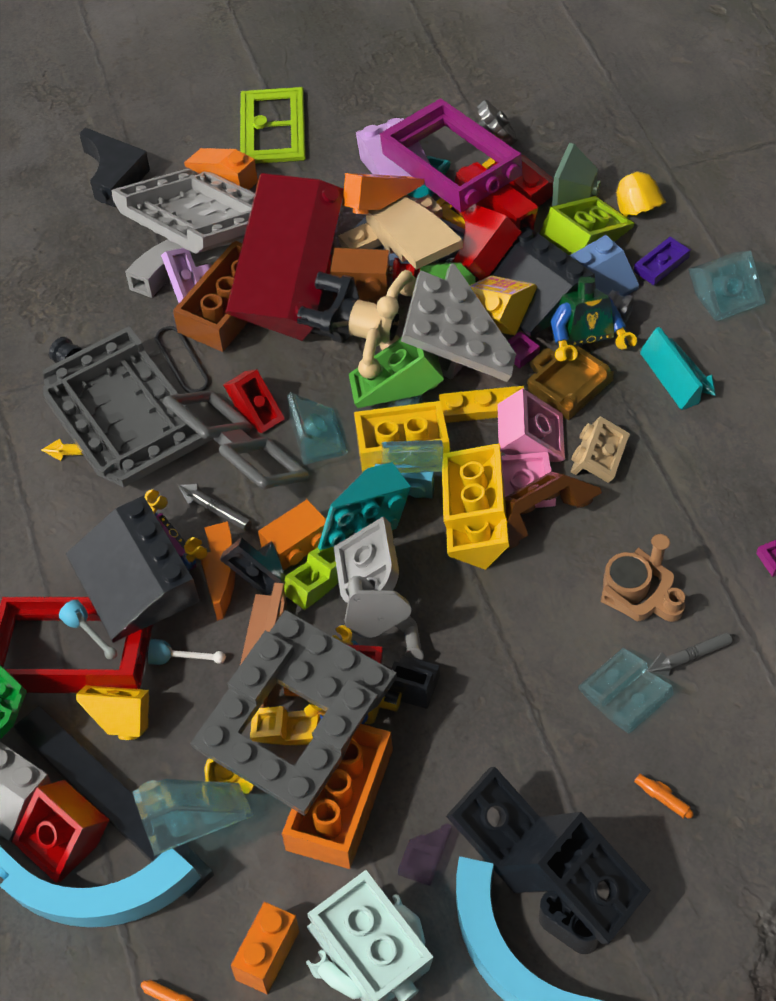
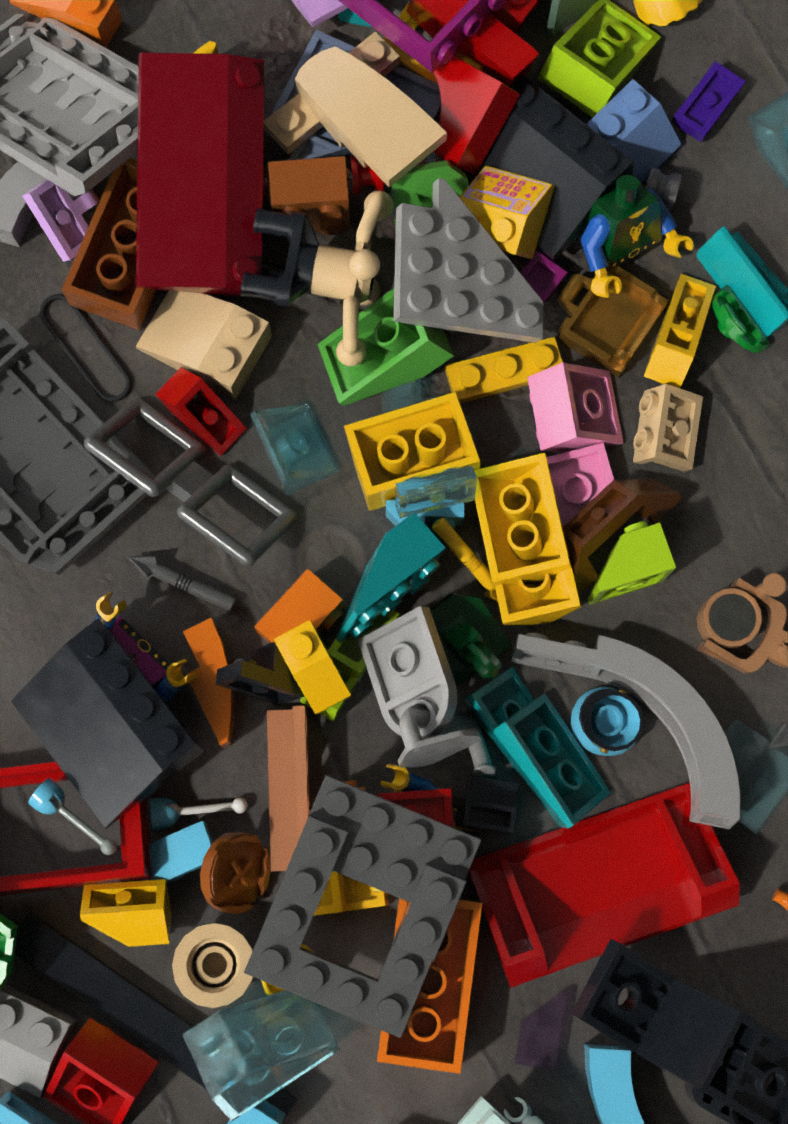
camera: 15 degrees left, 25 degrees up
(166, 675) = (179, 852): none -> medium azure slope
(167, 752) = (212, 965): none -> tan piece
(199, 690) = (235, 872): none -> dark orange tile
(278, 356) = (207, 339): none -> tan slope
(294, 553) = (312, 667): none -> yellow slope
(376, 191) = (310, 52): orange slope -> none
(419, 563) = (469, 636): none -> dark green piece
(428, 508) = (466, 556): none -> yellow piece
(459, 646) = (538, 747): none -> teal slope
(519, 635) = (606, 721): none -> medium azure piece
(527, 739) = (600, 881): none -> red slope
(553, 526) = (634, 563): none -> lime slope
(558, 612) = (670, 697): none -> light grey arch
(617, 391) = (680, 331): none -> yellow slope
(664, 393) = (736, 322): none -> green plate

